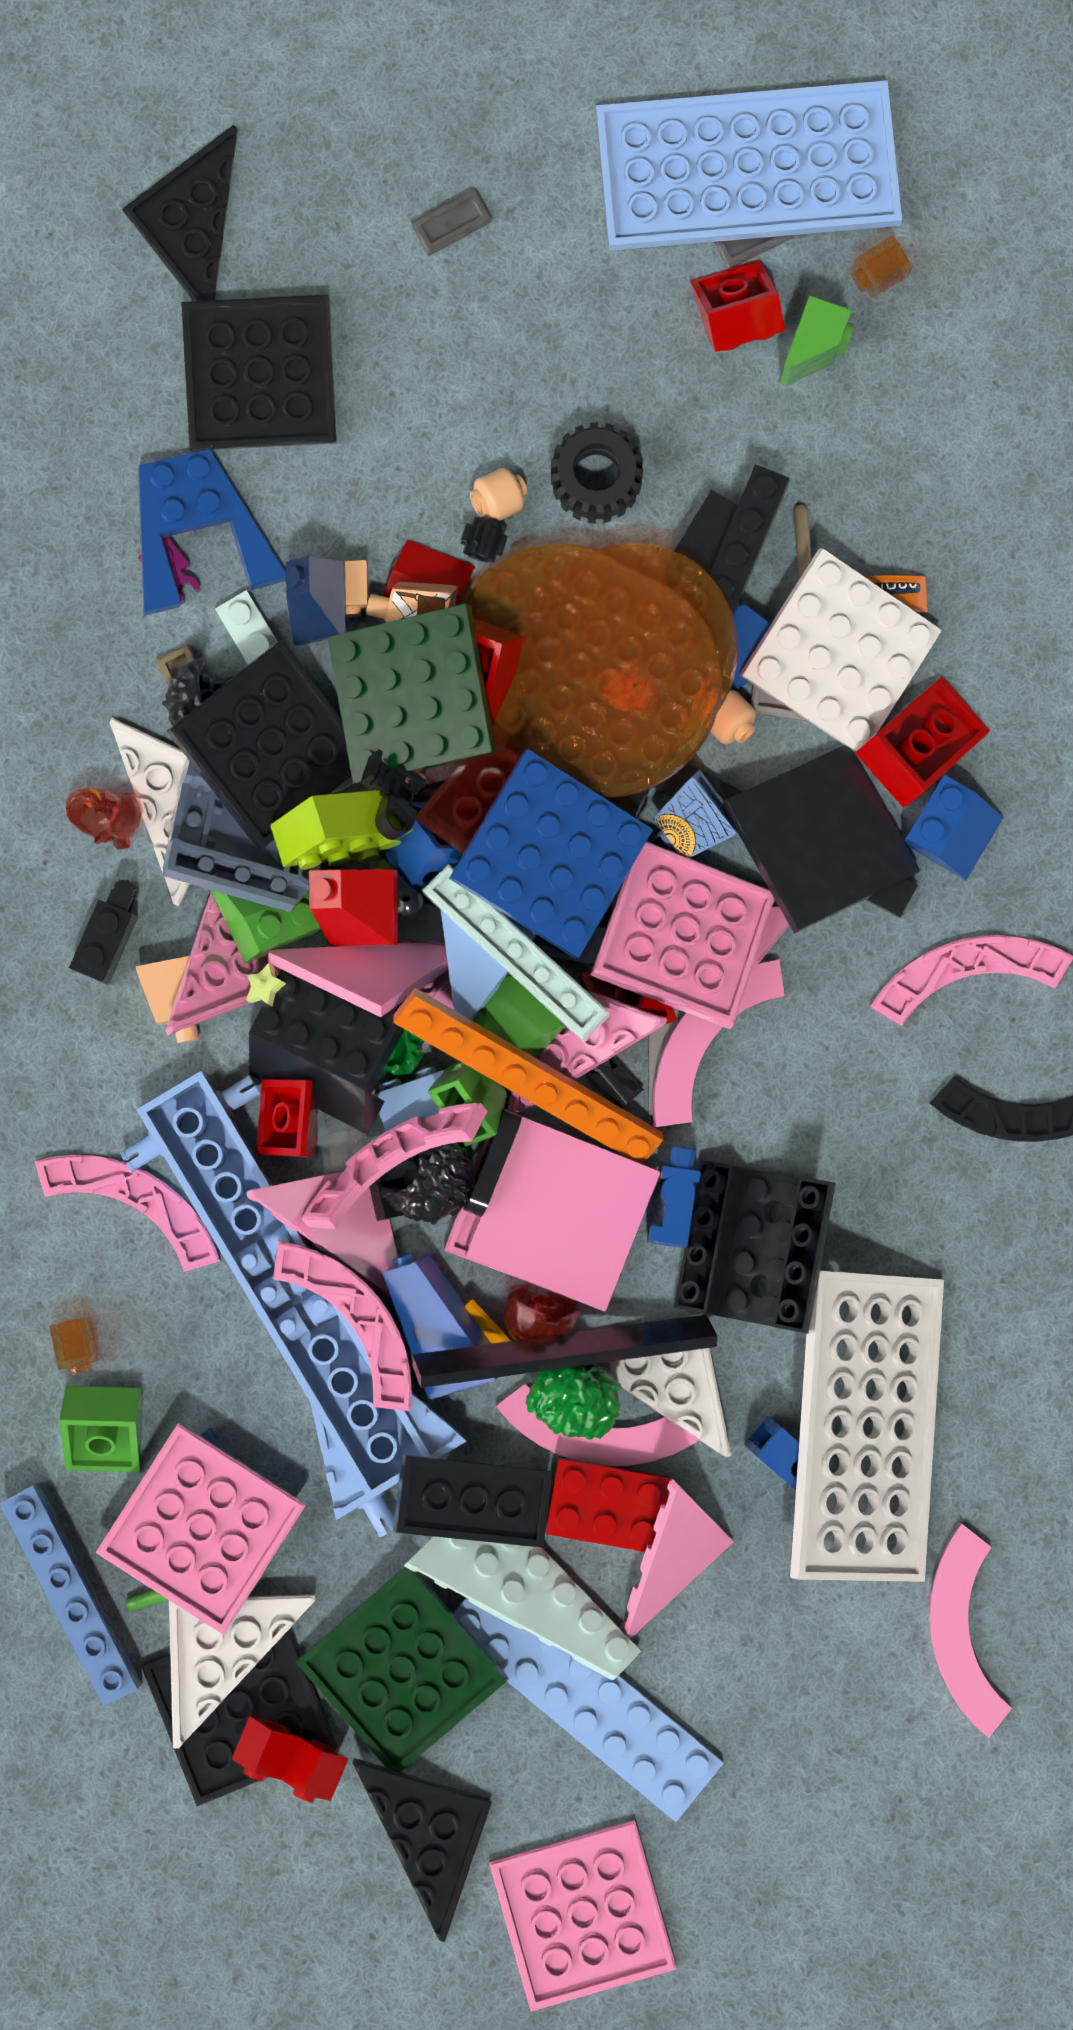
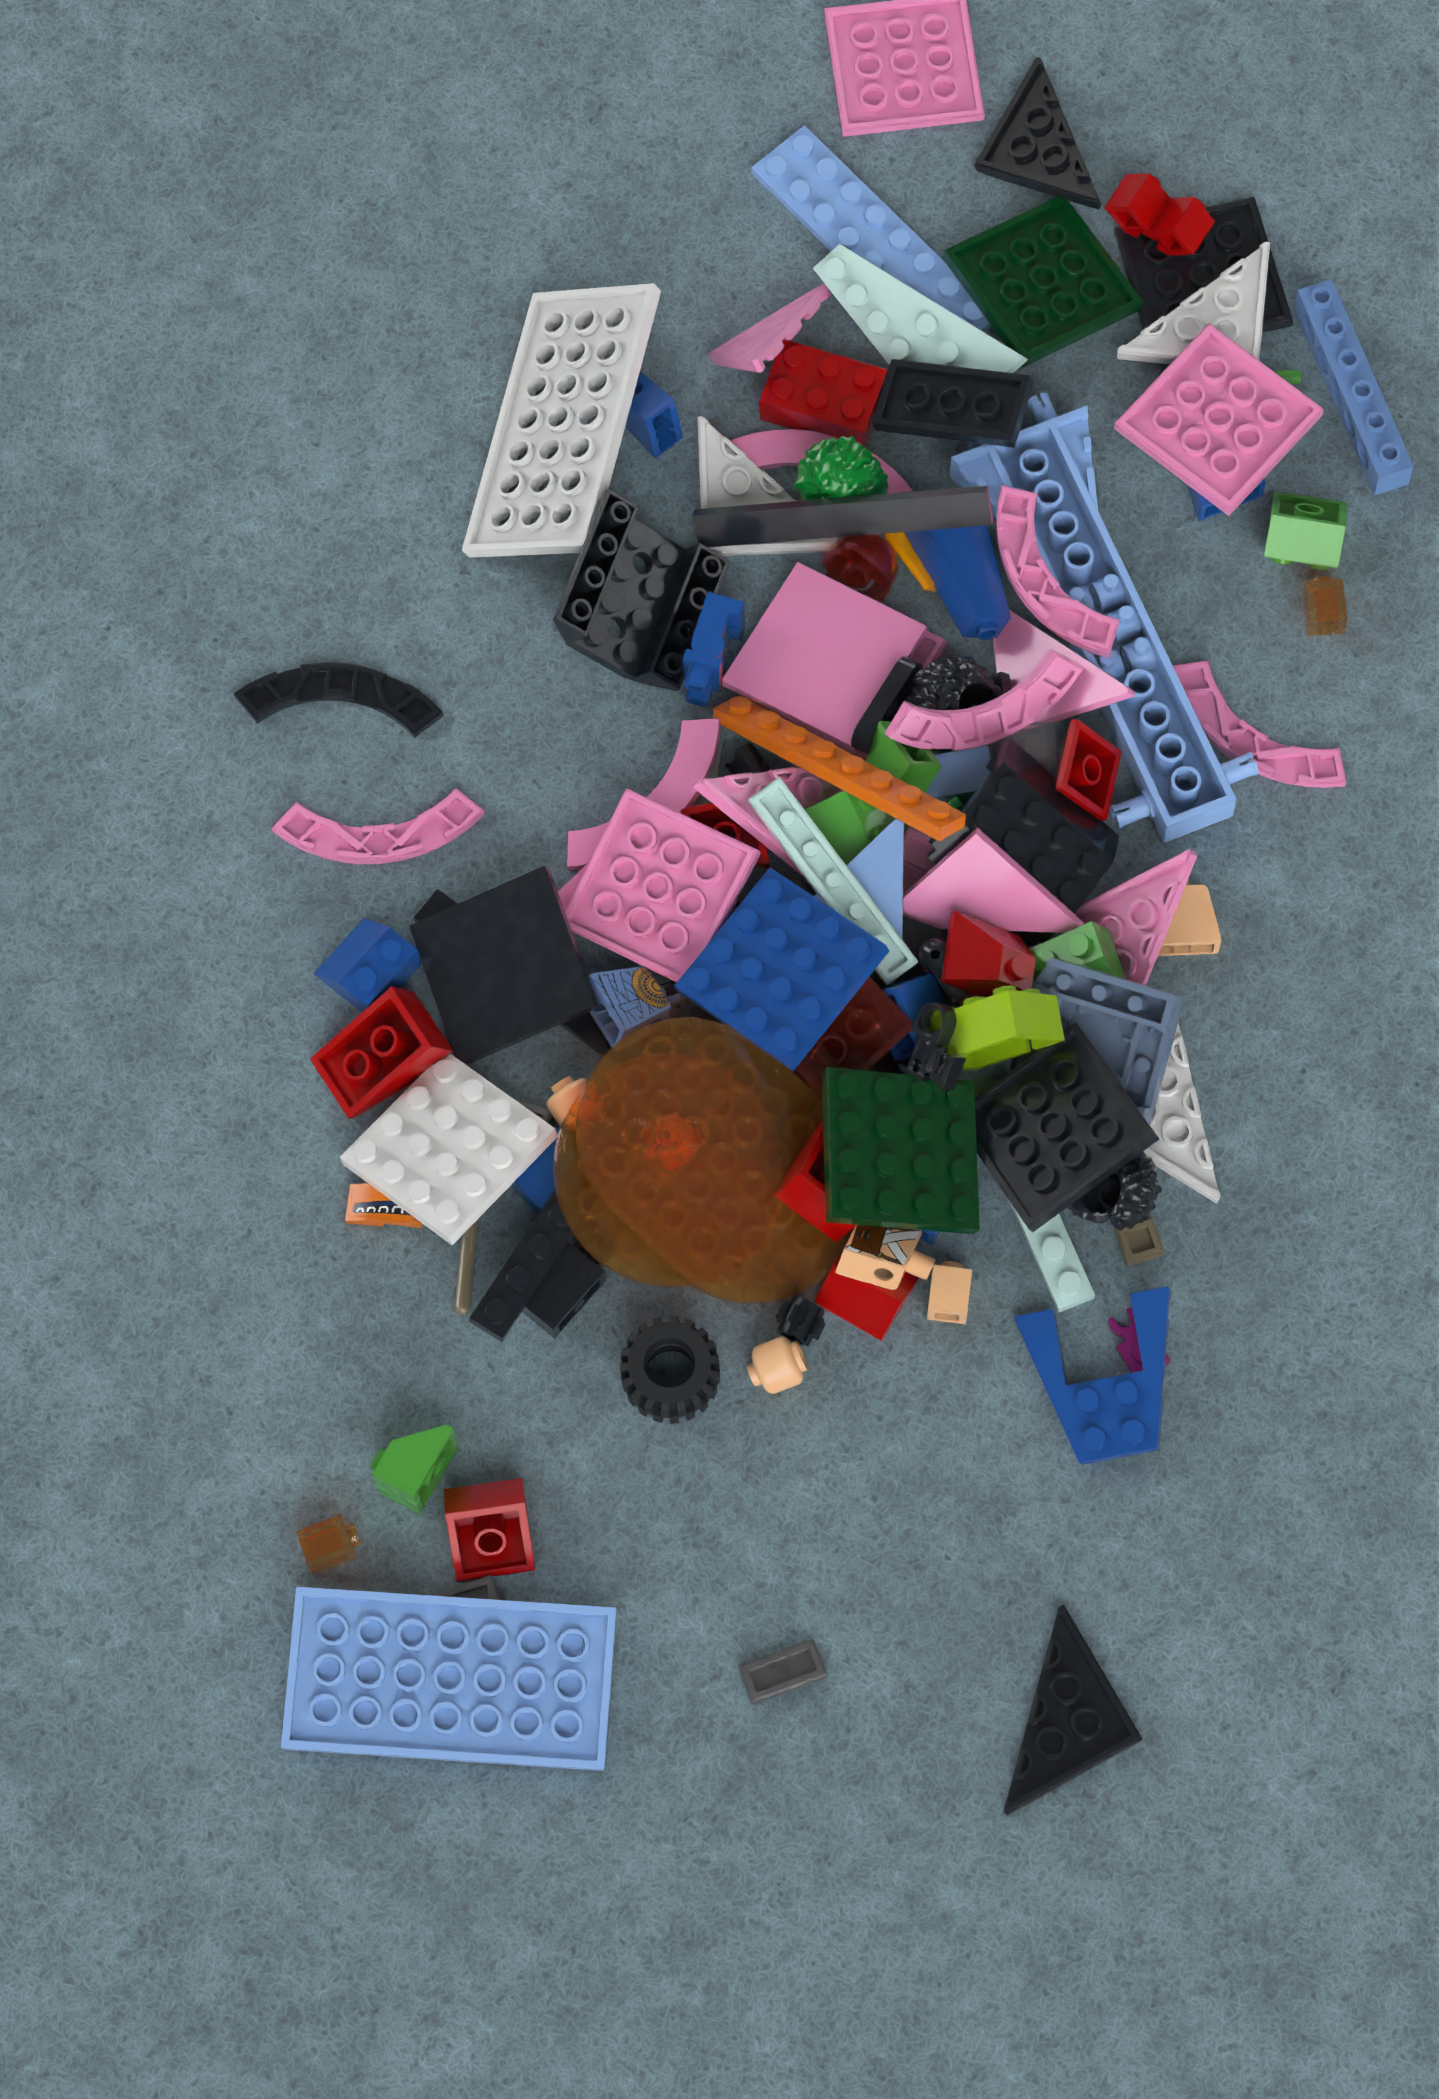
camera: 170 degrees left, 15 degrees down
(105, 815) = (1231, 1097): clear red hair -> none
(106, 934) = (1248, 980): black hinge -> none
(259, 372) = (1015, 1536): black tile -> none
(264, 985) = (1091, 898): yellowish green piece -> none
(315, 598) = (985, 1277): dark blue slope -> none
(951, 1631) = (515, 253): bright pink tile -> none

